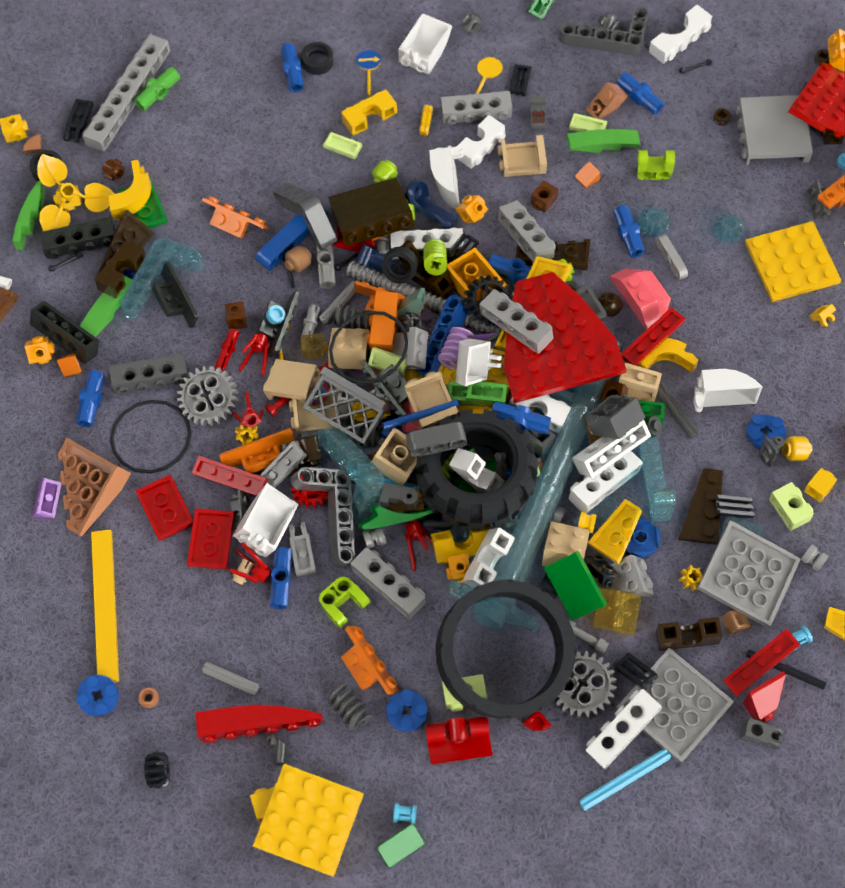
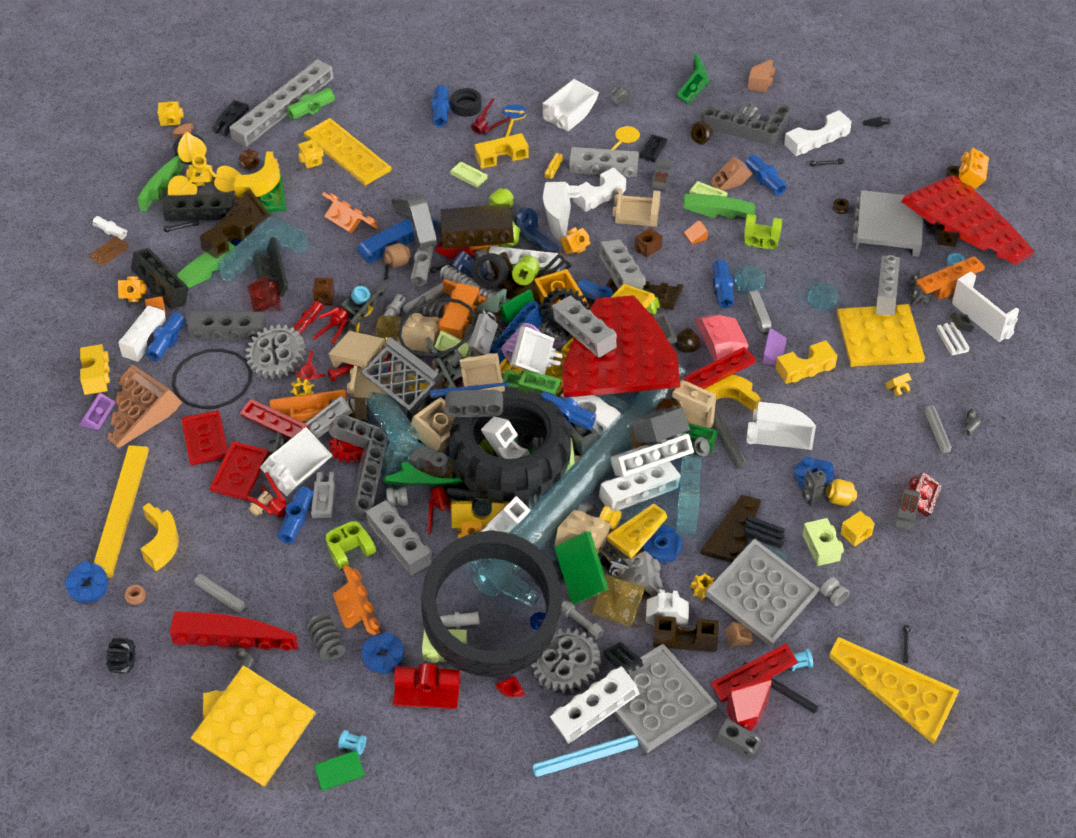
camera: 10 degrees right, 15 degrees down
(34, 463) = (95, 369): none -> yellow arch
(62, 408) = (134, 341): none -> white arch
(161, 639) = (164, 545): none -> yellow arch
(175, 152) = (310, 153): none -> yellow brick
(176, 330) = (264, 295): none -> clear red bracket
(211, 139) = (348, 151): none -> yellow tile
(339, 83) = (481, 123): none -> dark red plant
(434, 305) = (512, 307): none -> green slope
(472, 660) = (458, 620): none -> white pin
(544, 651) = (533, 620): none -> clear blue plate
(564, 54) = (701, 132): none -> dark brown brick
(665, 610) = (667, 605): none -> white hinge
(695, 297) = (774, 347): none -> medium lavender slope
(719, 317) = (793, 368): none -> yellow arch
(735, 8) = (878, 122): none -> black bar
(790, 206) = (888, 285): none -> light grey brick

